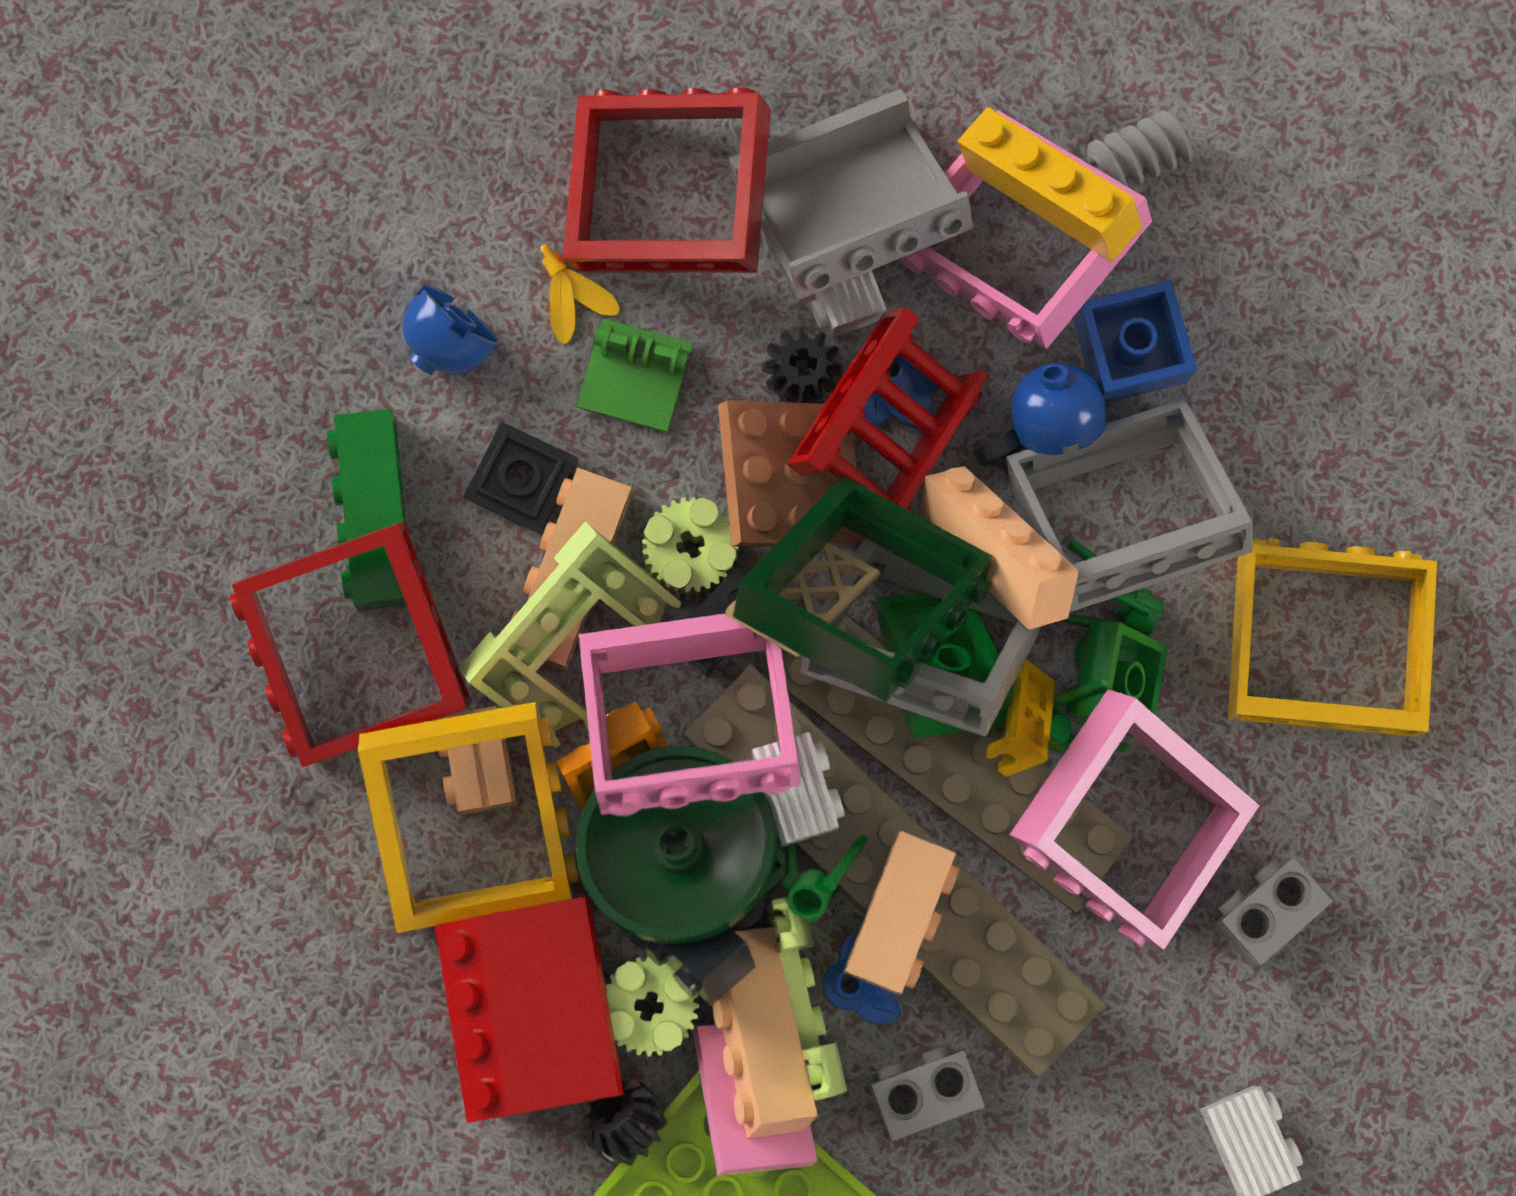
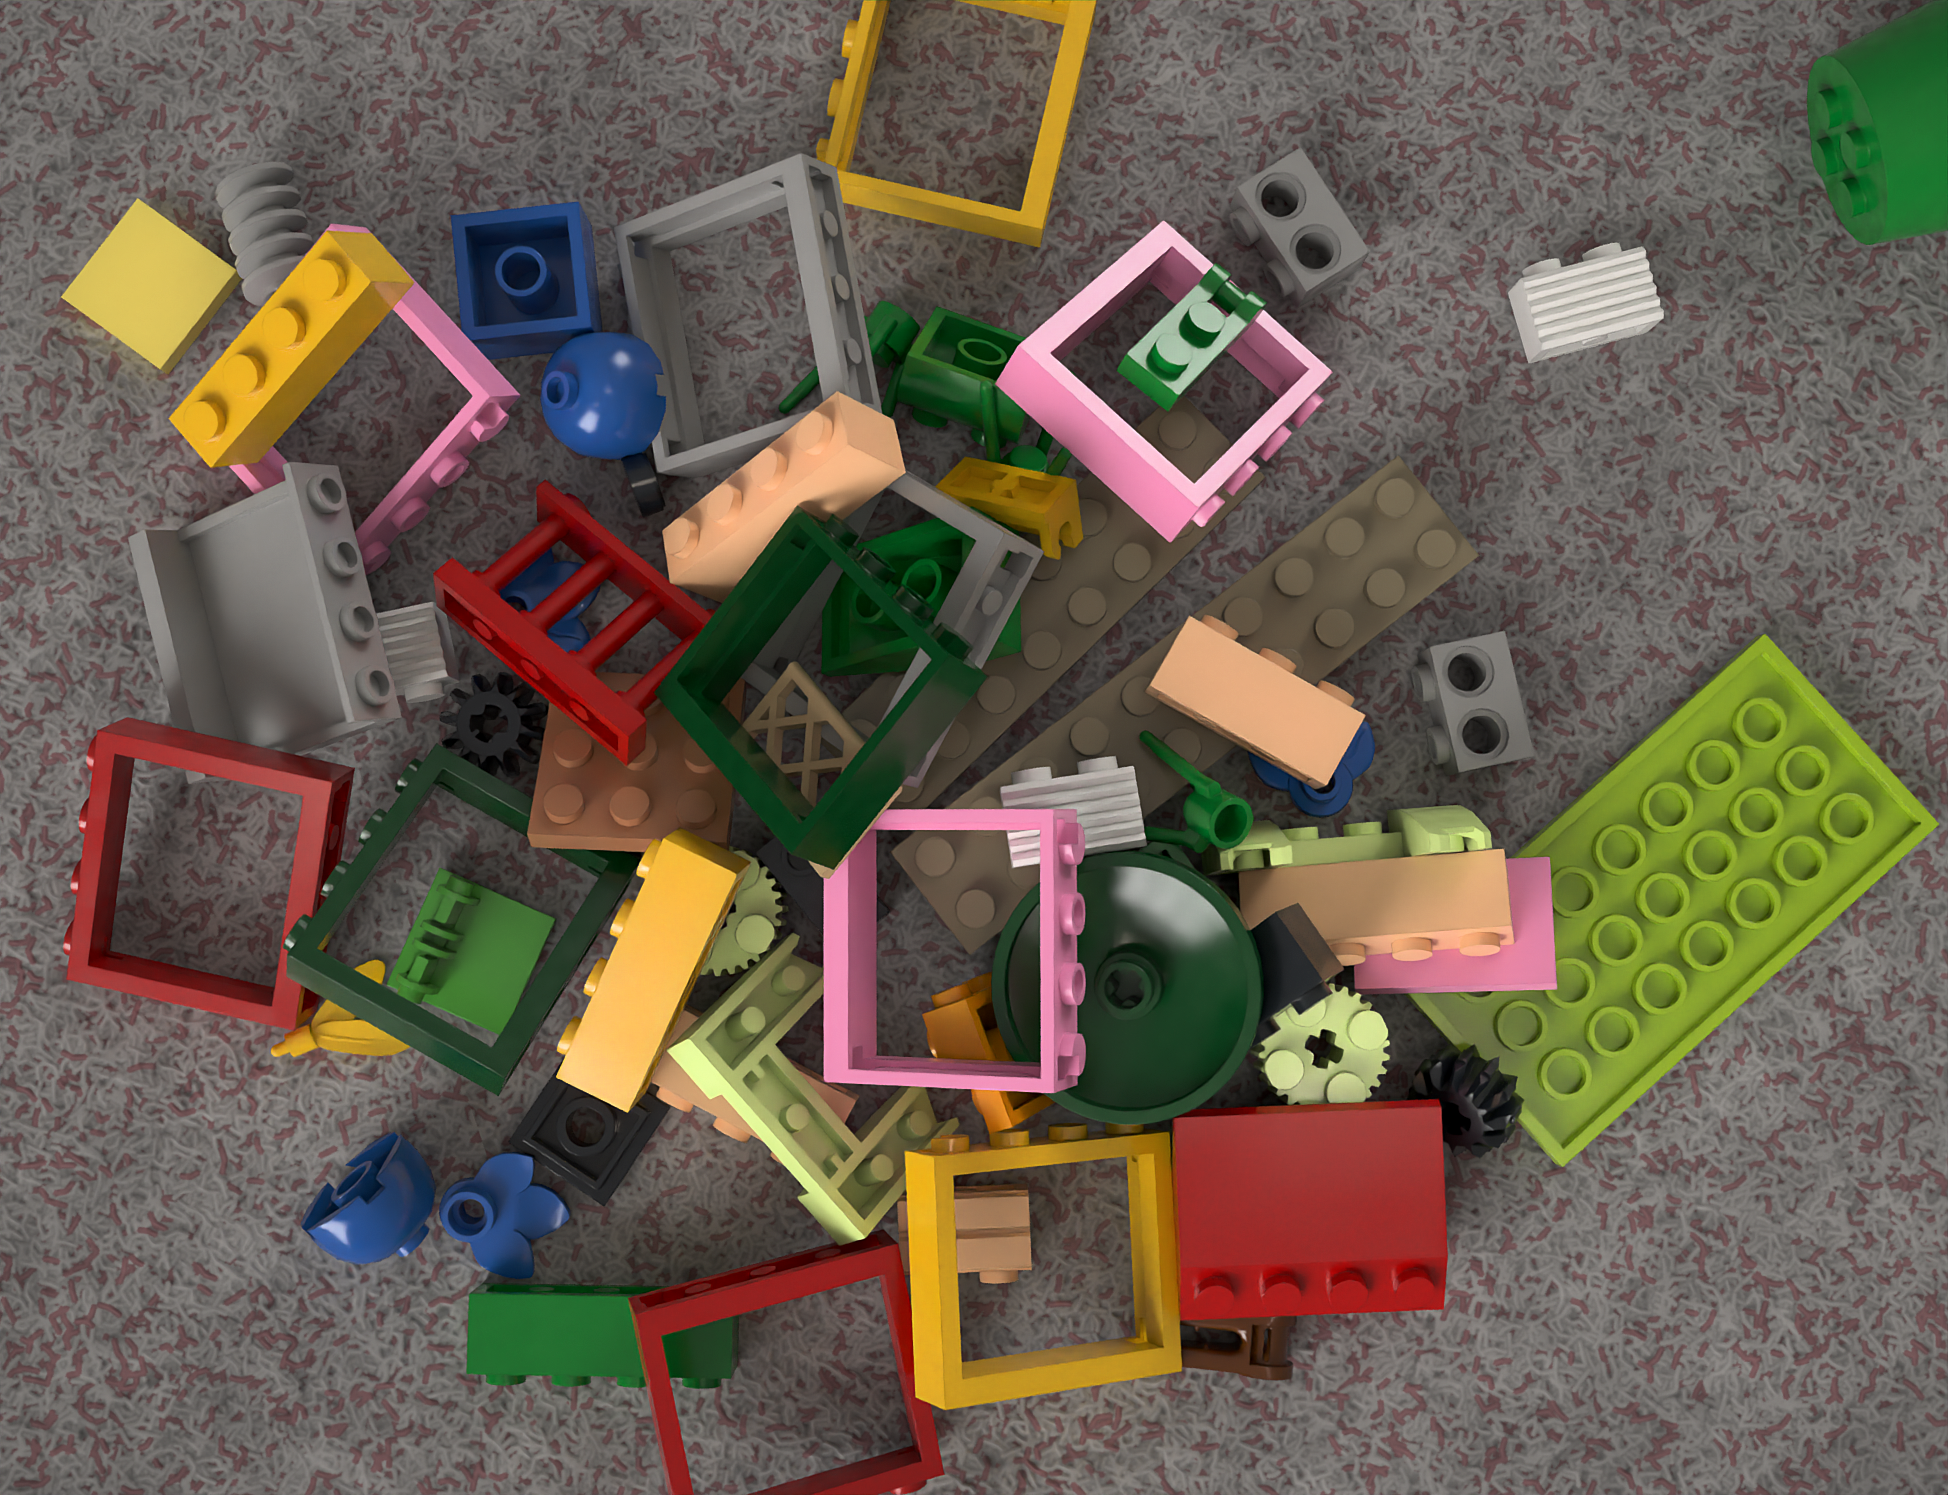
camera: 75 degrees left, 5 degrees up
(412, 985) = (1246, 1353): none -> reddish brown piece
(450, 432) = (512, 1214): none -> blue plate
(584, 331) = (395, 1014): none -> dark green window
(643, 502) = (652, 967): none -> yellow brick
(1088, 75) = (152, 286): none -> light yellow tile
(1166, 831) = (1190, 338): none -> plate

